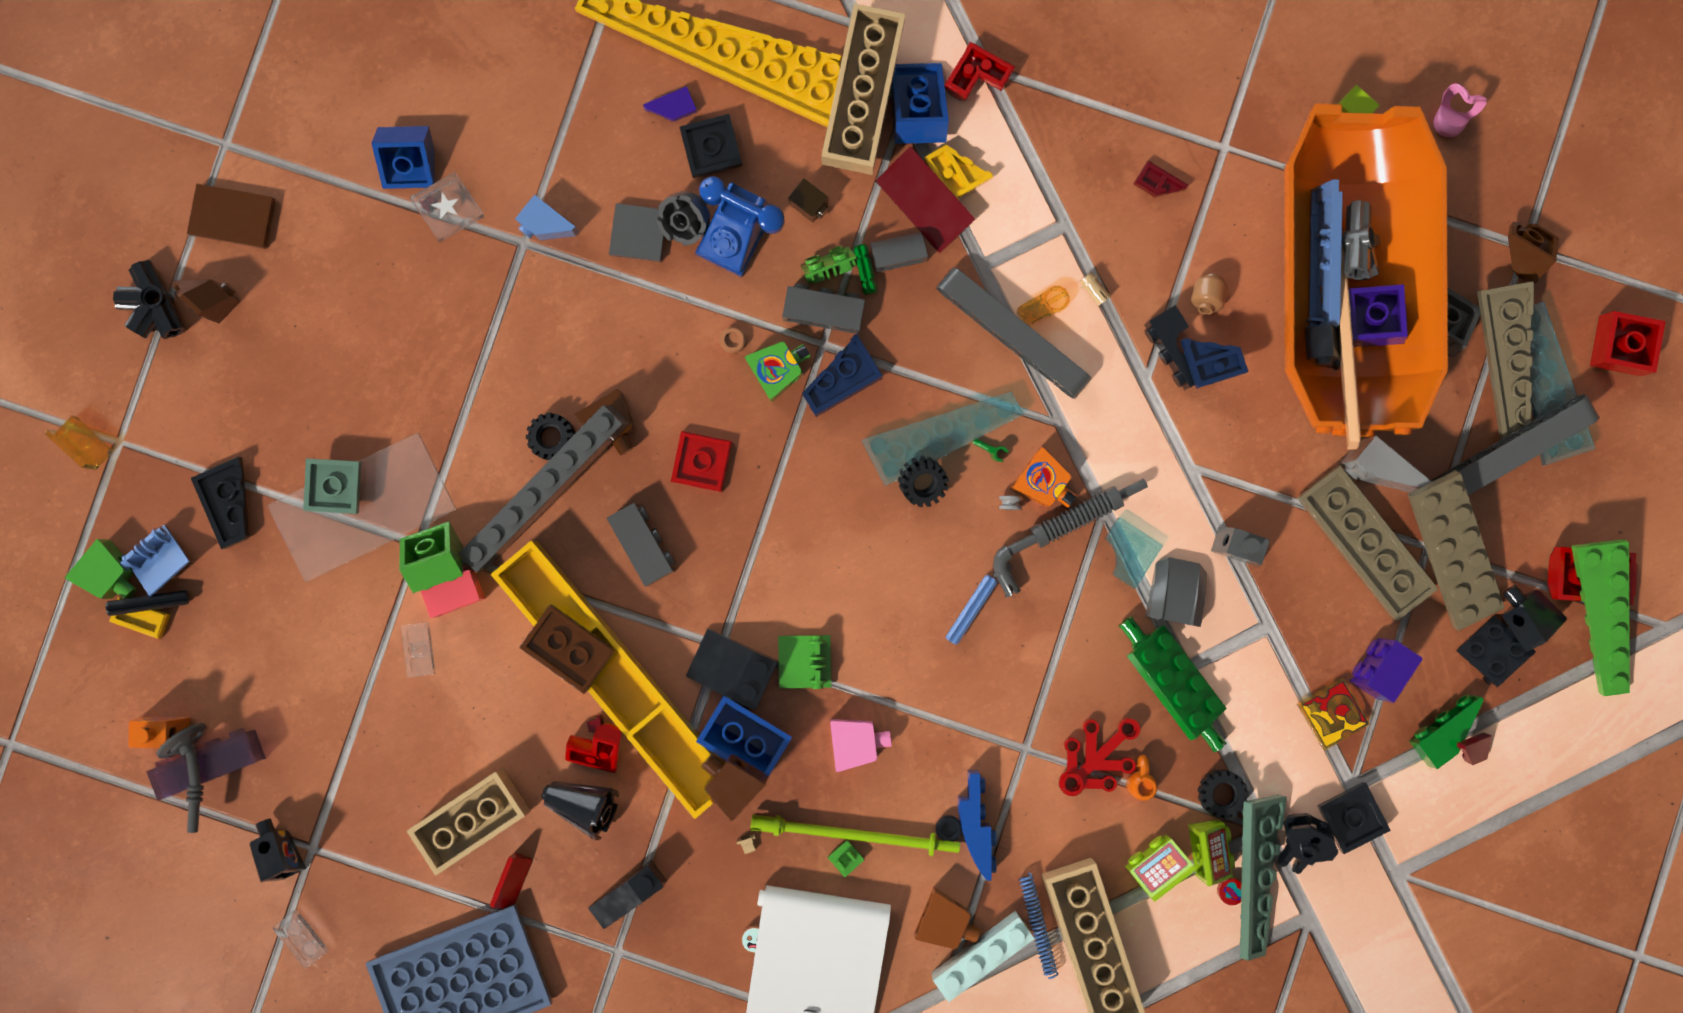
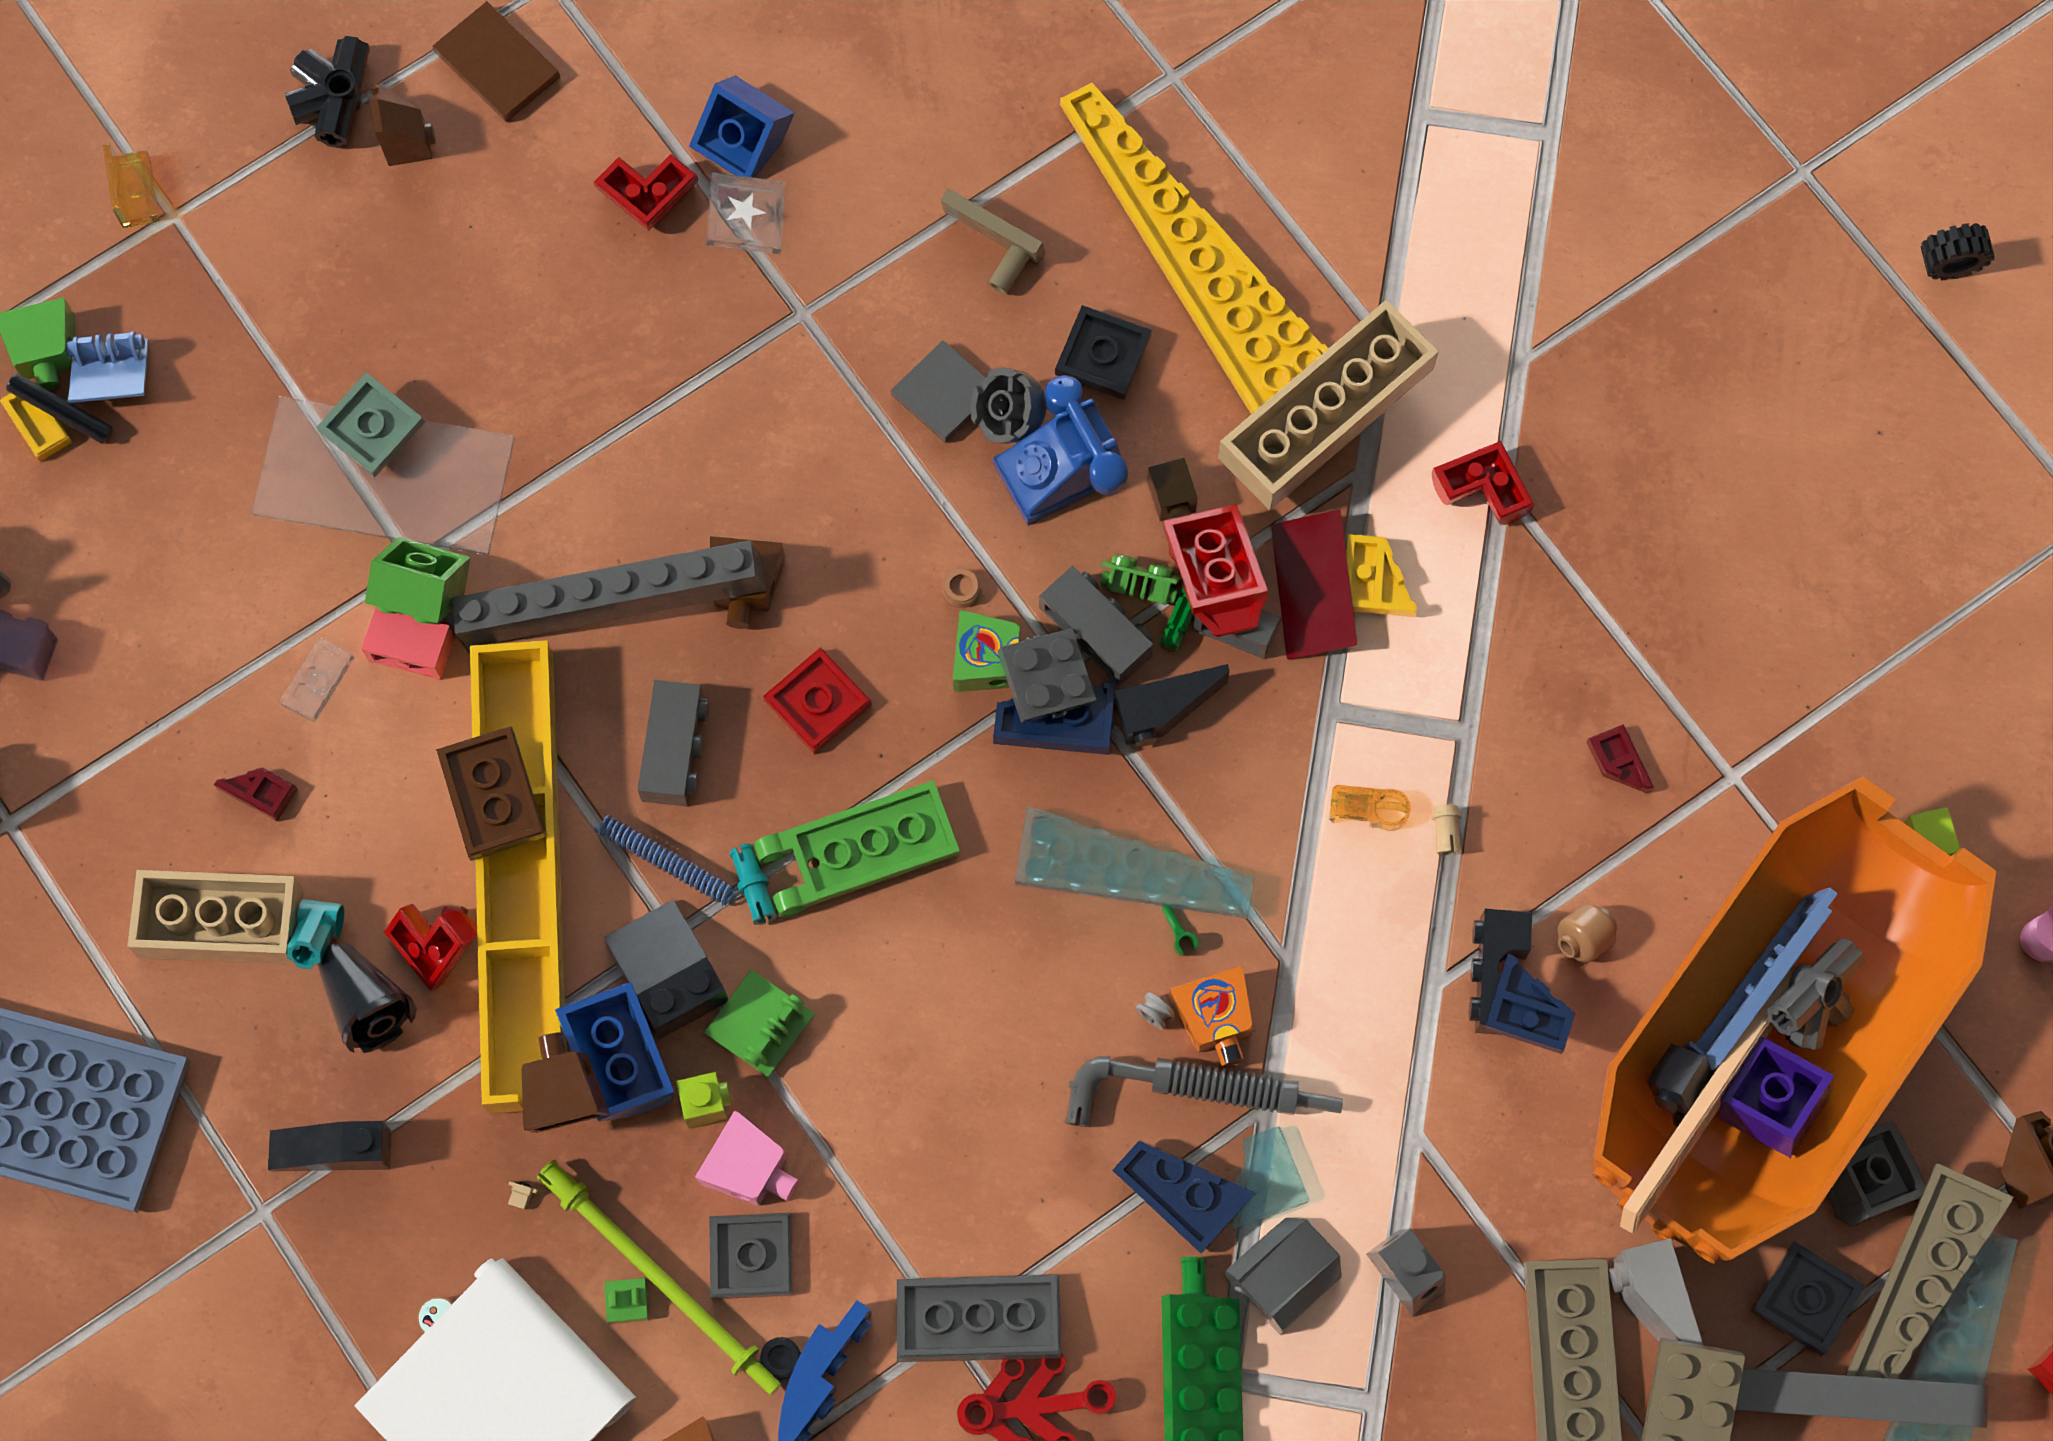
camera: 35 degrees right, 15 degrees down
(224, 501) = (235, 359): black wing -> none
(384, 237) = (646, 198): none -> red brick
(436, 732) = (260, 791): none -> dark red tile
(511, 881) = (206, 1027): red slope -> none
(527, 786) = (315, 927): none -> teal piece
(539, 425) = (656, 526): black tyre -> none
(543, 221) = (843, 304): medium blue slope -> none
(617, 114) = (1019, 243): none -> dark tan piece
(673, 105) = (1093, 279): dark purple tile -> none
(729, 607) = (648, 844): none -> medium blue piece
(744, 589) = (753, 884): none -> teal pin
(788, 525) = (861, 846): none -> bright green hinge
(808, 726) = (703, 1099): none -> lime brick
(820, 360) = (1046, 675): none -> dark grey plate
(869, 230) = (1218, 569): none -> red slope
(890, 333) = (1159, 706): none -> black slope
(893, 787) = (750, 1256): none -> dark grey tile
(913, 472) = (1065, 929): black tyre -> none
(919, 104) = (1386, 470): blue slope -> none
(971, 609) = (1011, 1107): medium blue axle -> none
(1013, 333) = (1308, 813): dark grey beam -> none
(1036, 733) = (978, 1318): none -> dark grey tile
(1096, 591) = (1182, 1193): none -> dark blue wing
(1457, 411) = (1808, 1298): none -> black plate

